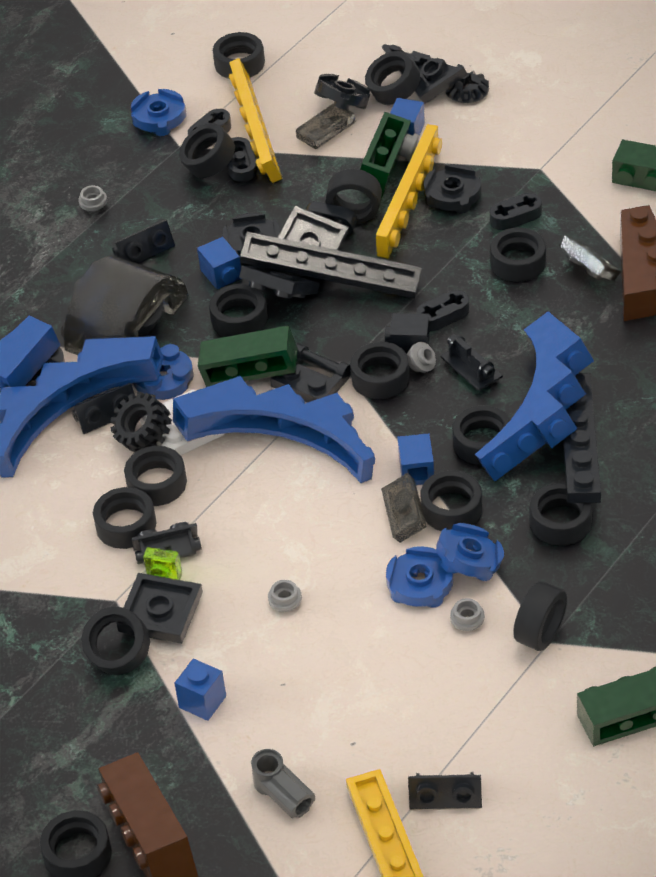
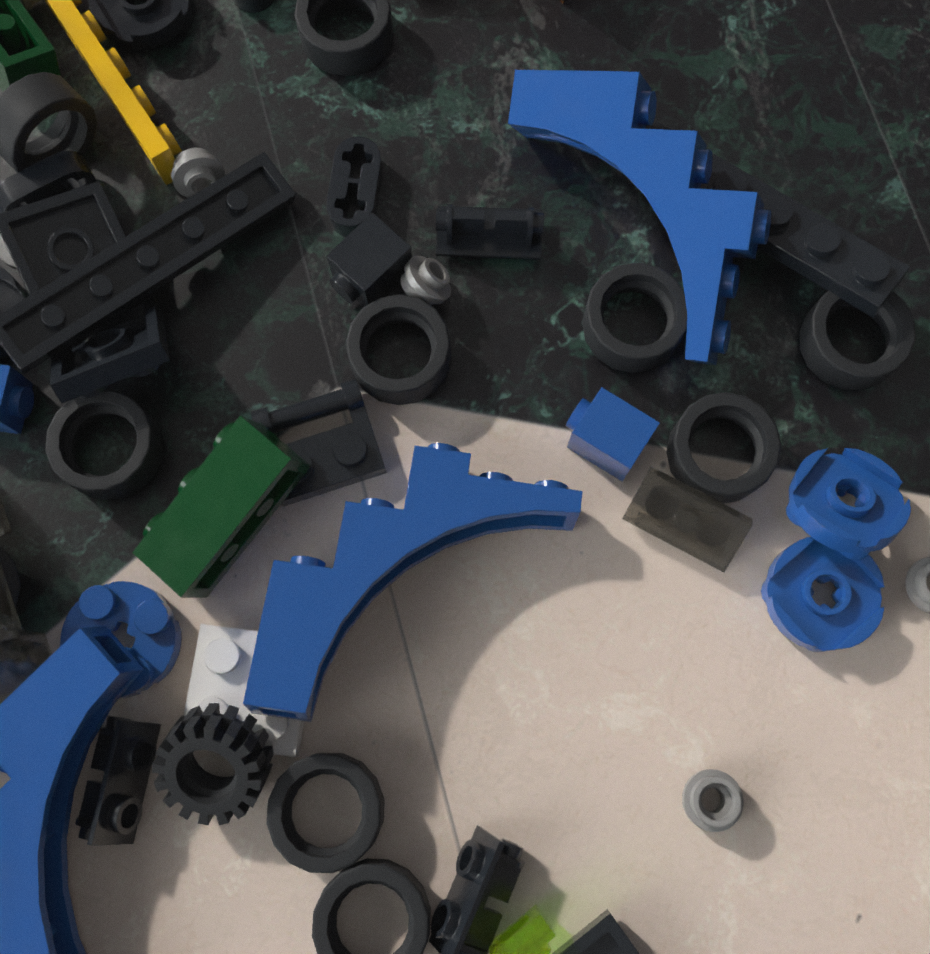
camera: 55 degrees left, 30 degrees up
(390, 253) = (195, 170): none -> light grey plate

